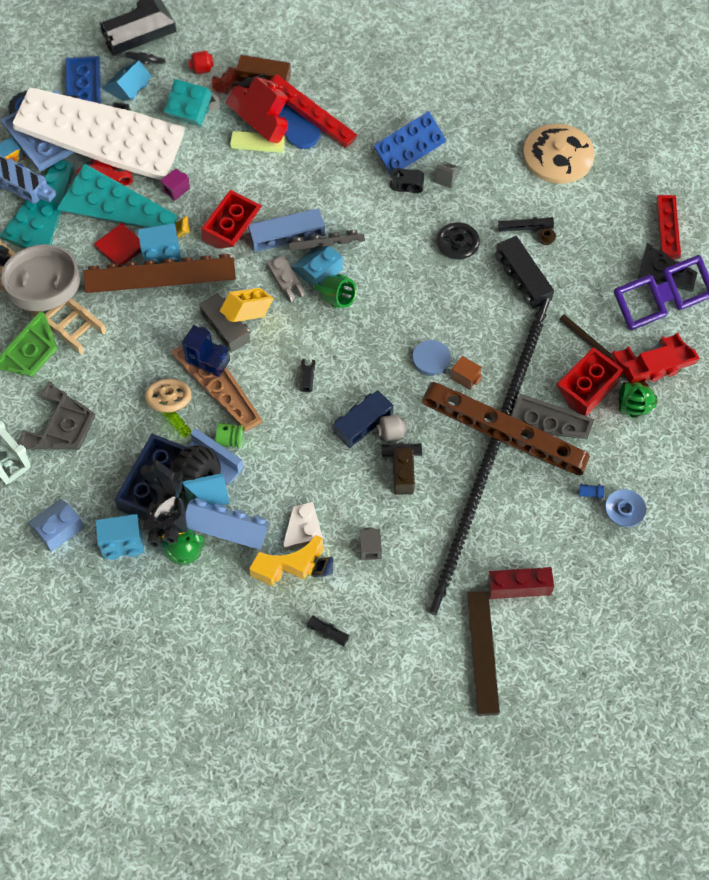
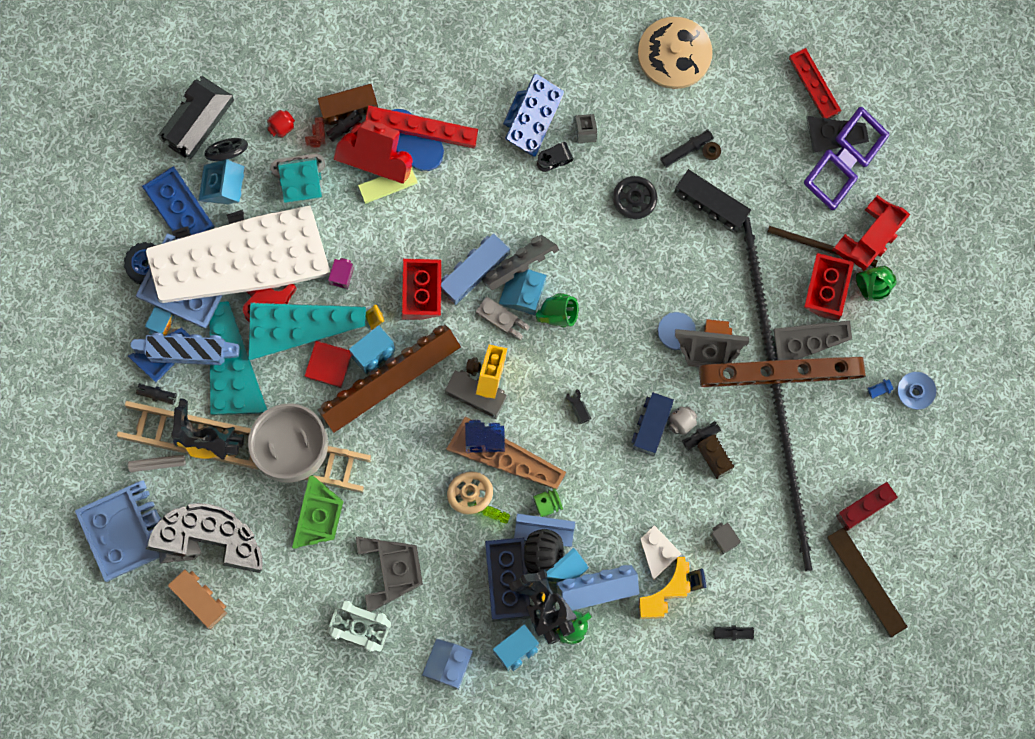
camera: 30 degrees left, 15 degrees up
(452, 375) = (709, 348): none -> dark grey wing

